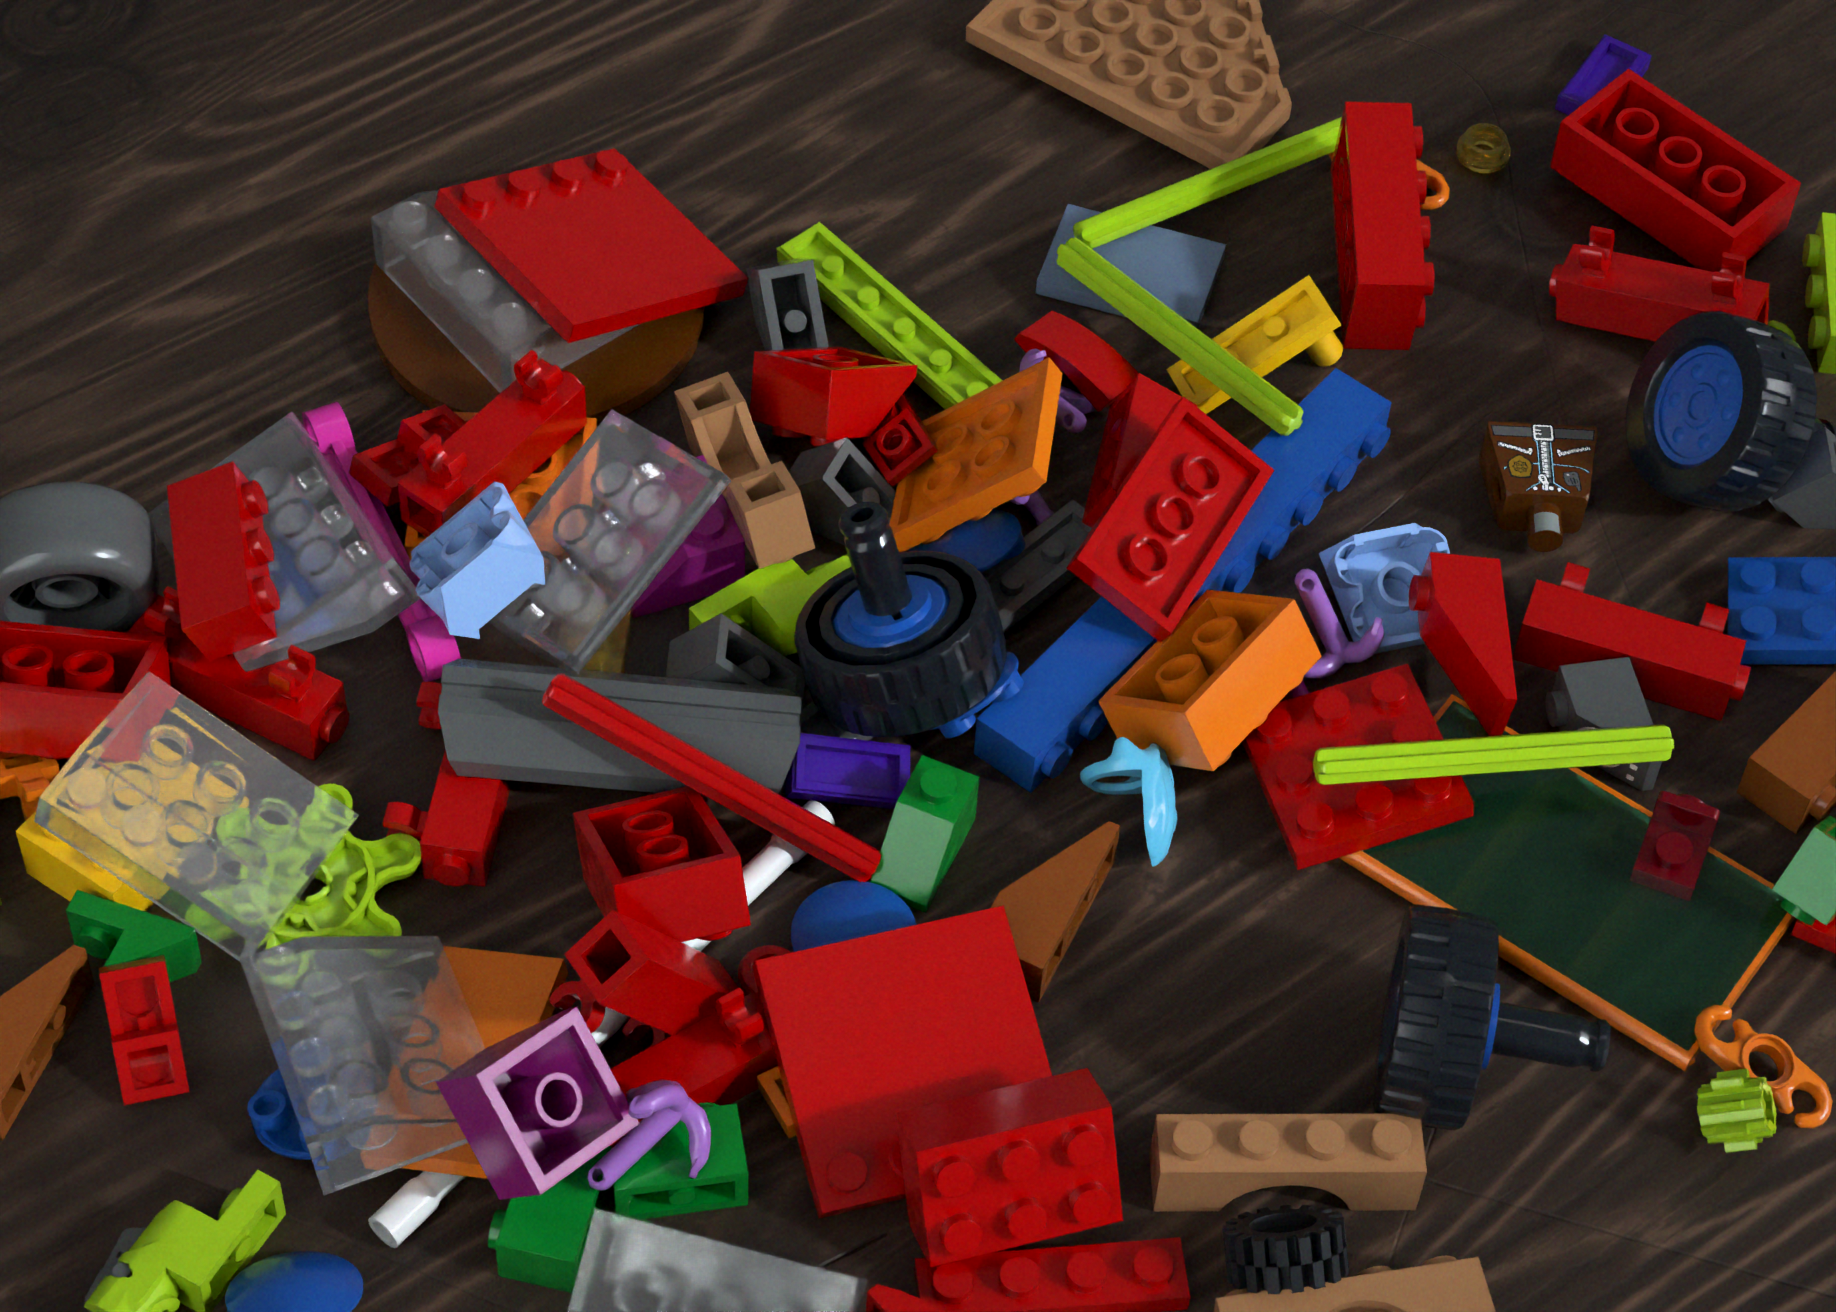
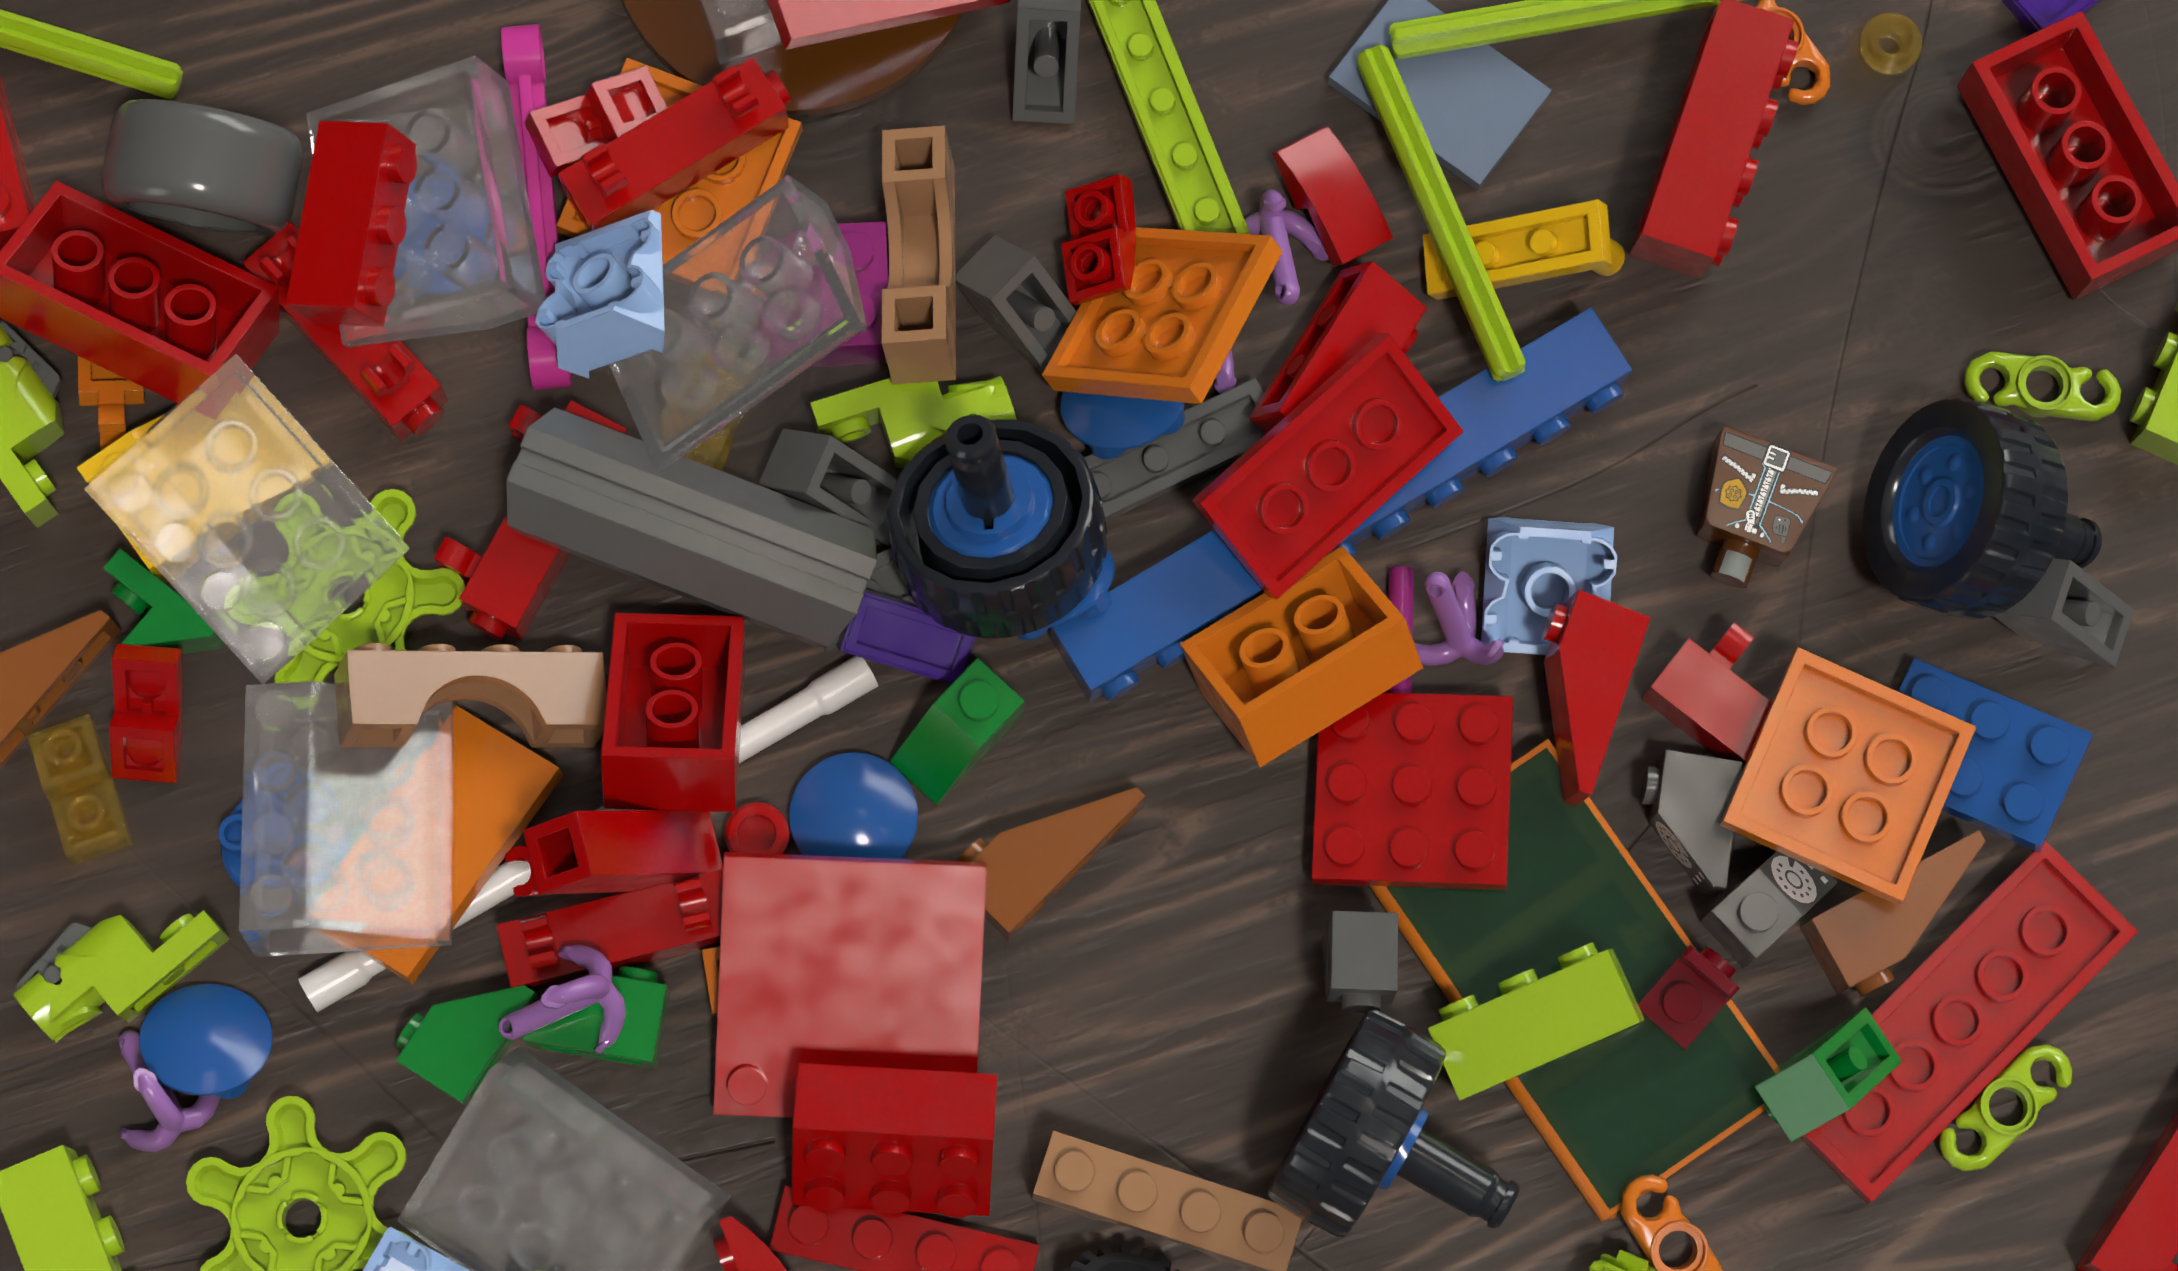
camera: 15 degrees right, 25 degrees up
(95, 1121) = (80, 789): none -> clear yellow slope
(530, 901) = (549, 694): none -> arch
(537, 1105) = (464, 956): magenta slope -> none
(711, 777) = (756, 624): red axle -> none
(825, 391) = (1047, 170): red slope -> none
(1148, 776) = (1198, 774): medium azure piece -> none
(1371, 885) = (1361, 959): none -> dark grey slope
(1492, 754) = (1543, 846): lime axle -> none
(1561, 896) = (1535, 1020): none -> lime brick
(1647, 295) = (1983, 322): red brick -> none
(1702, 764) = (1766, 906): none -> dark grey slope
(1726, 633) = (1848, 776): none -> orange plate

